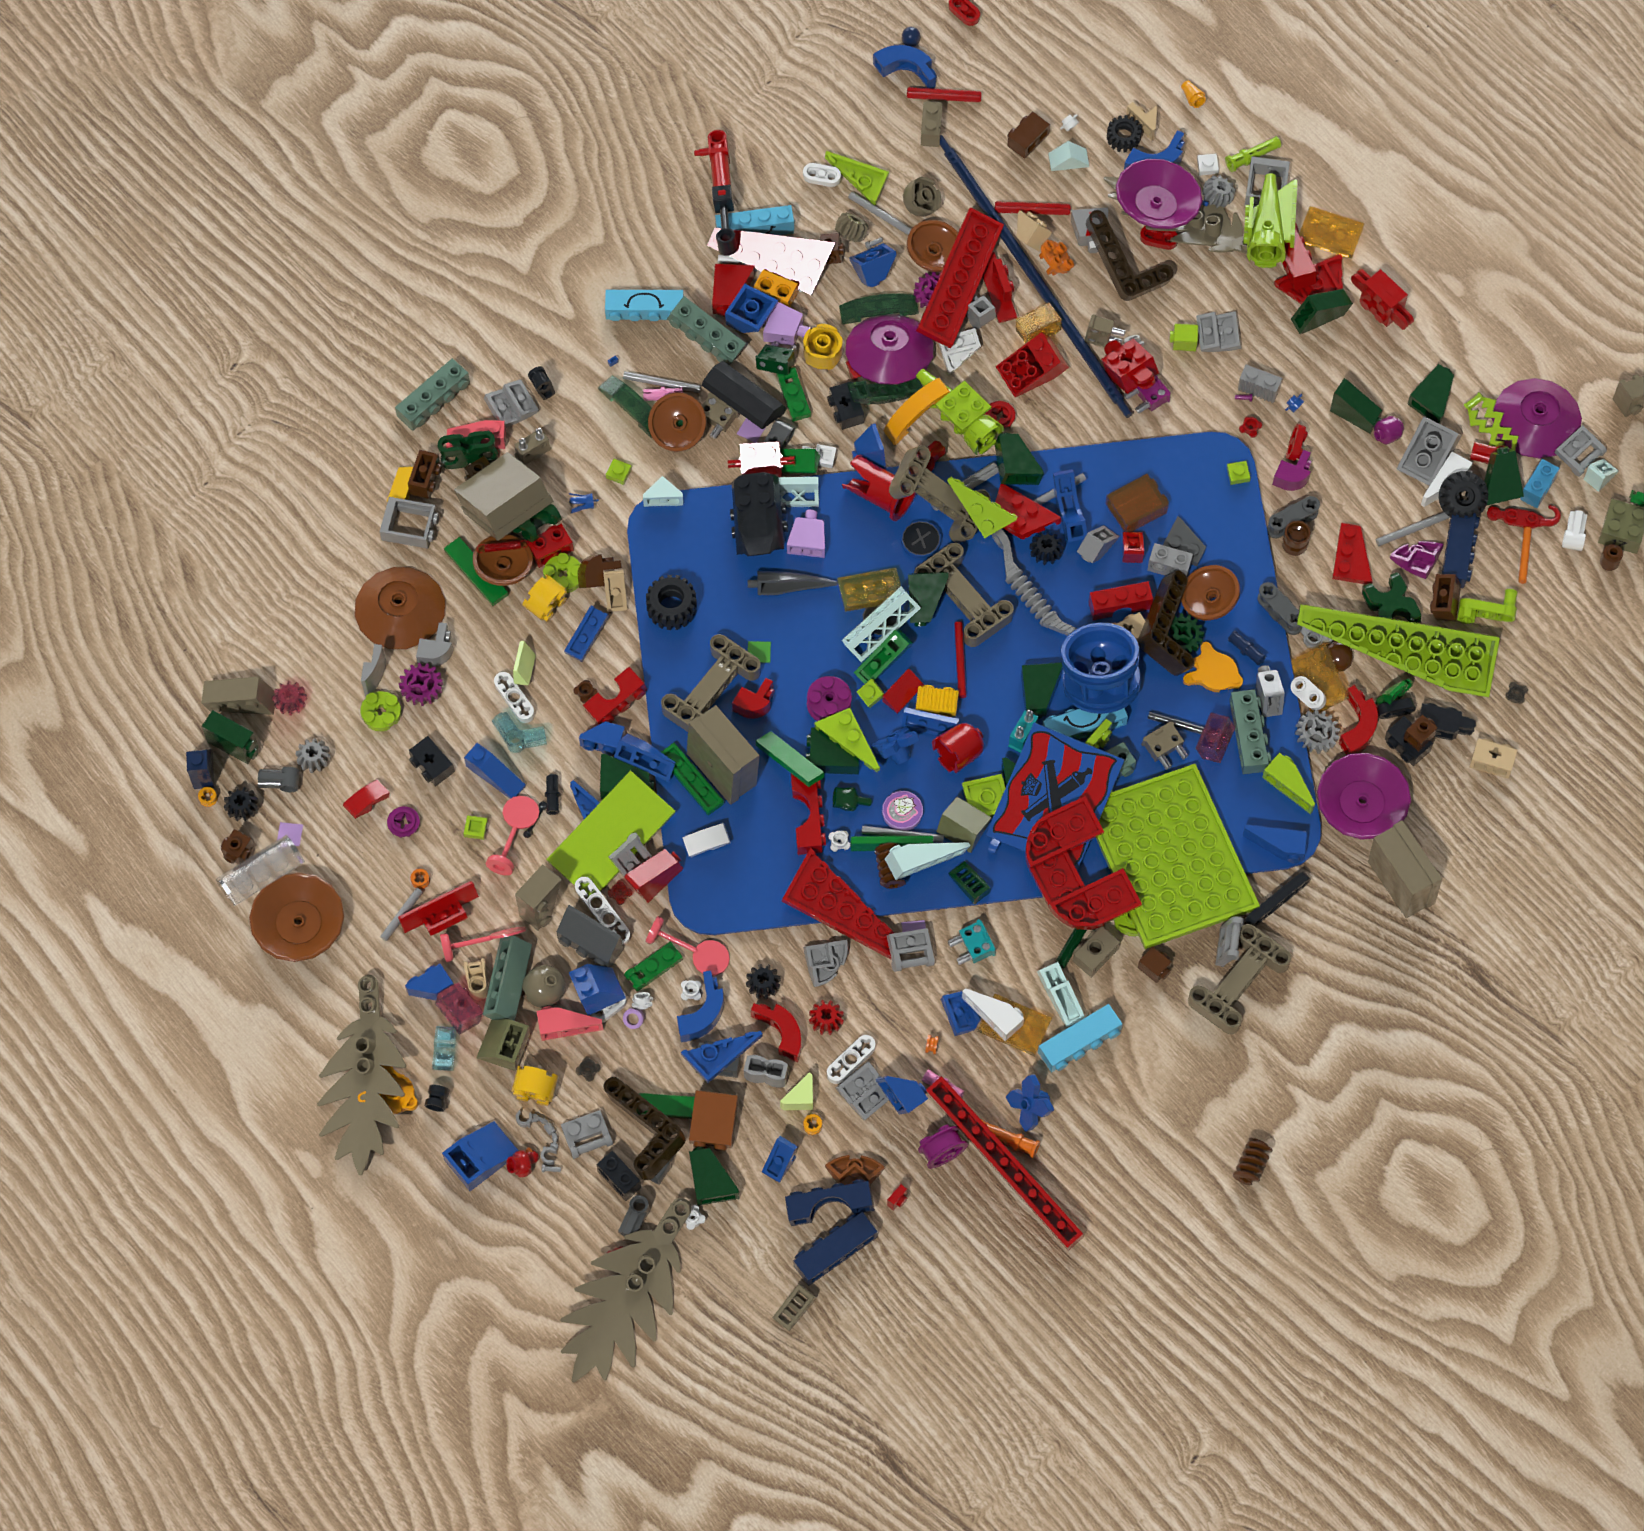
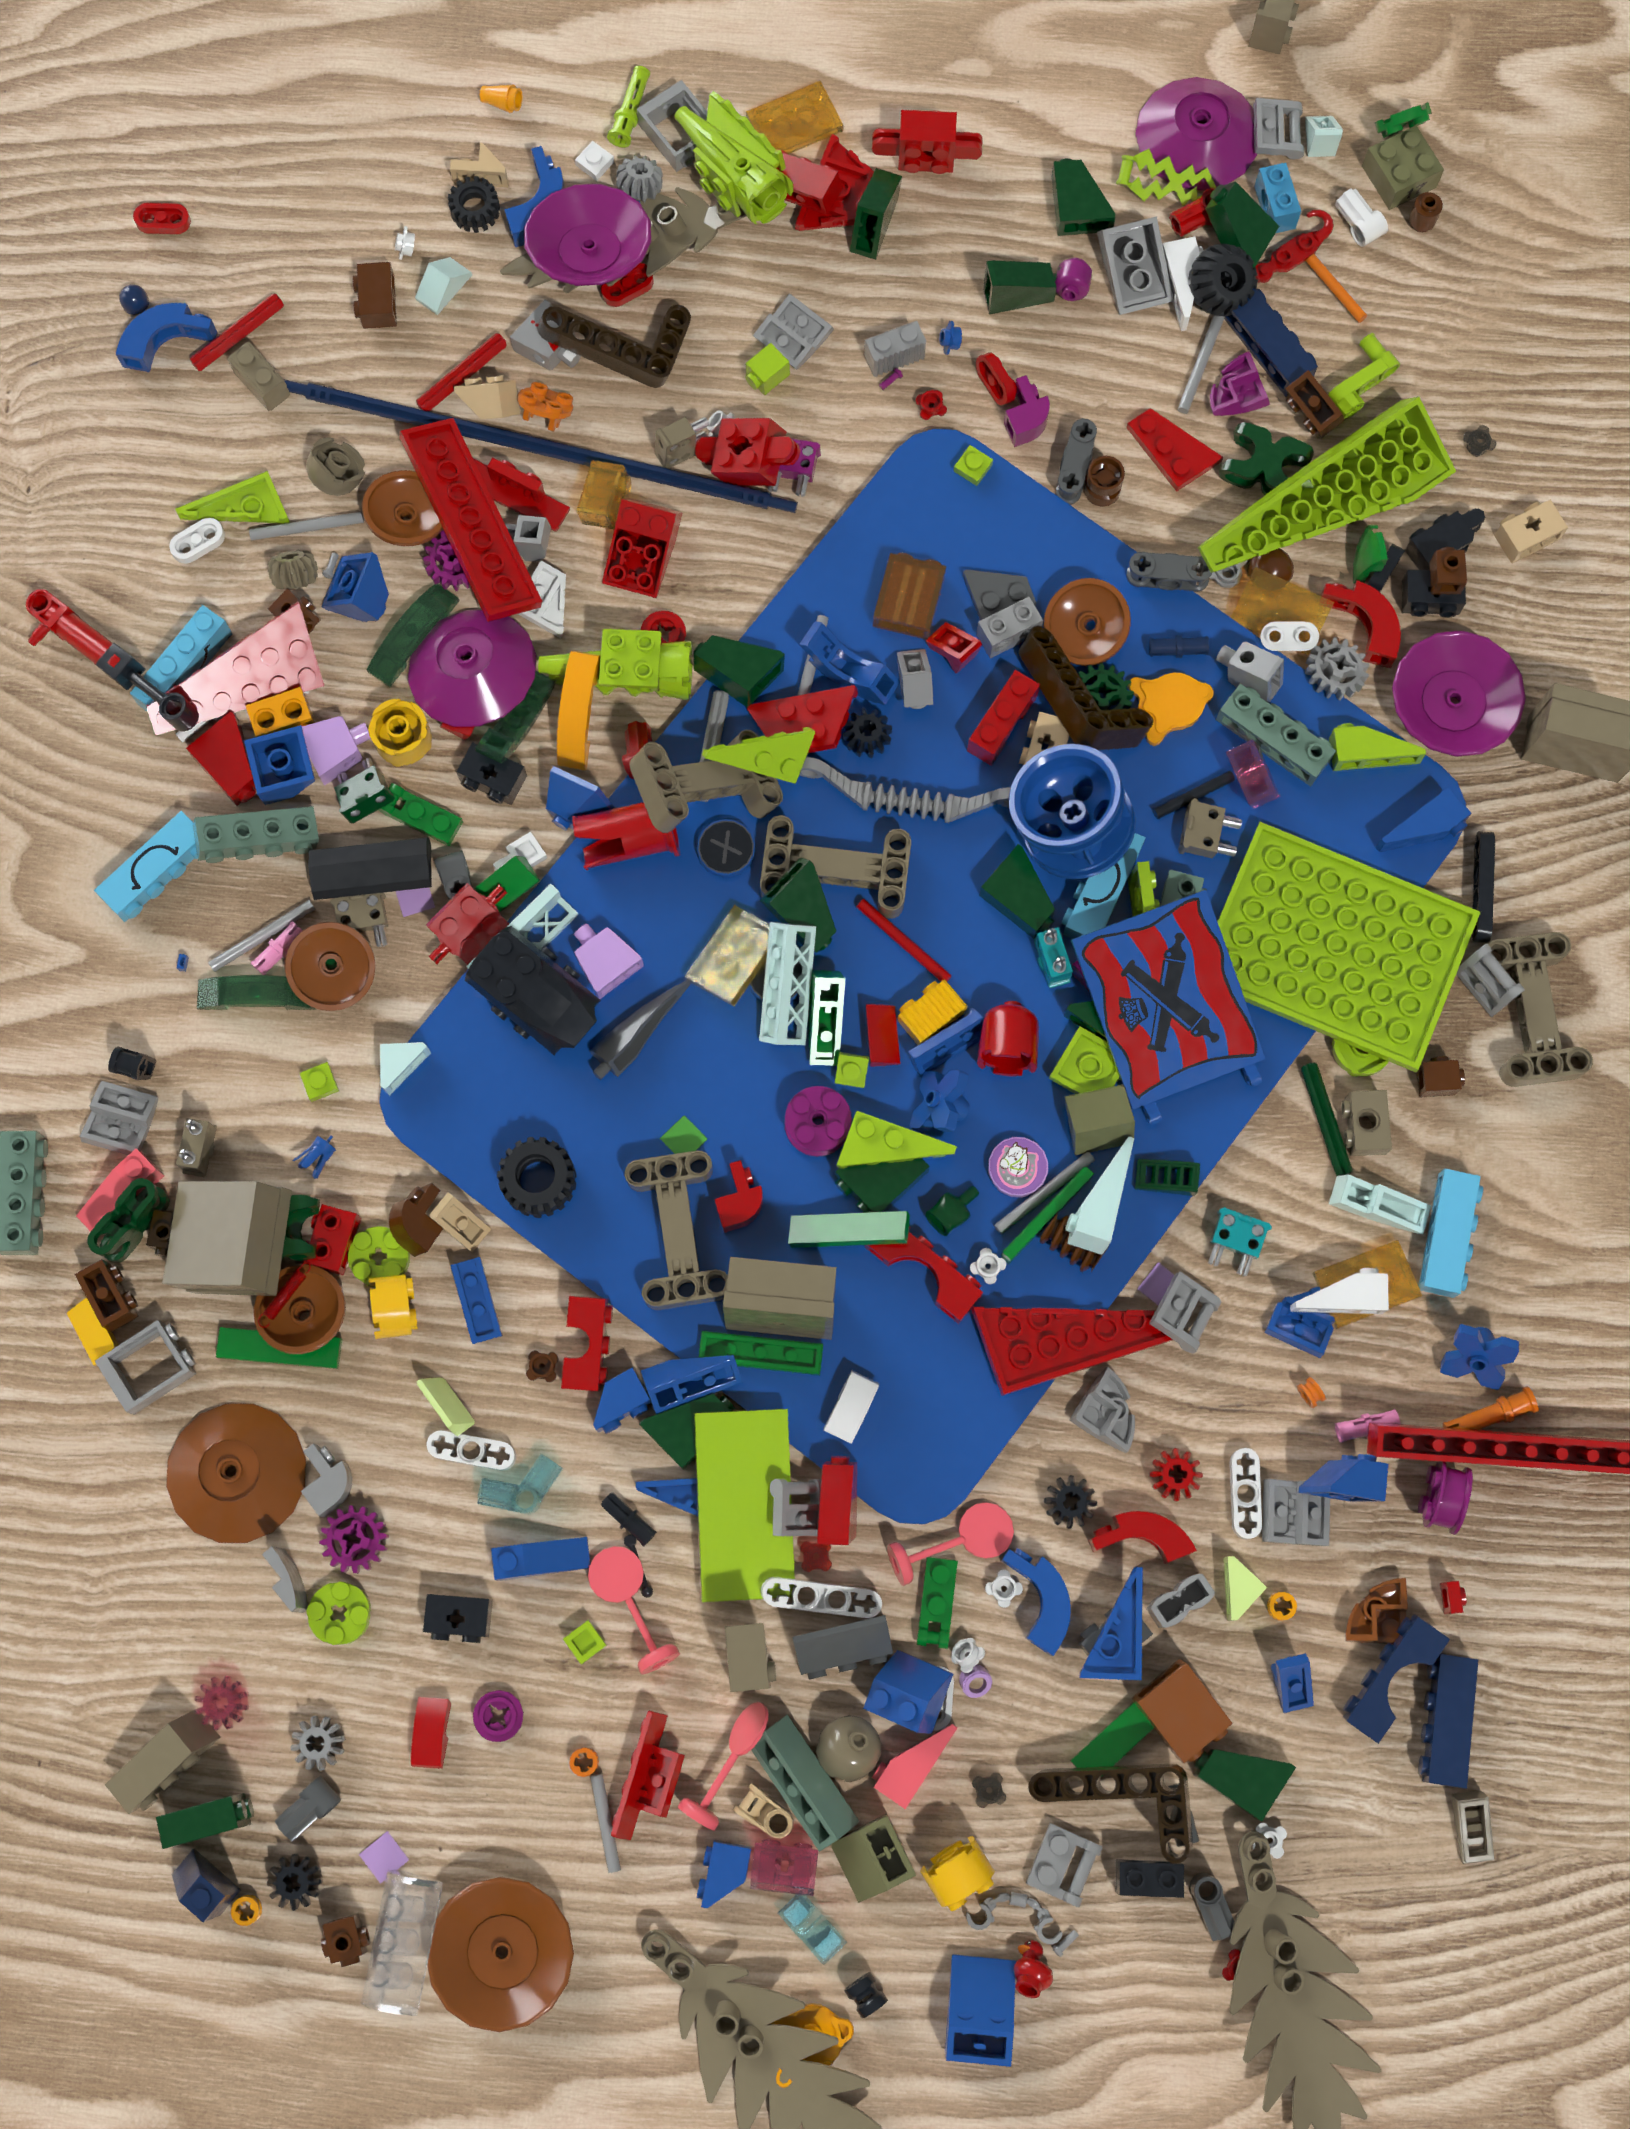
camera: 45 degrees left, 10 degrees up
(1058, 879) = (1261, 1085): red plate -> none

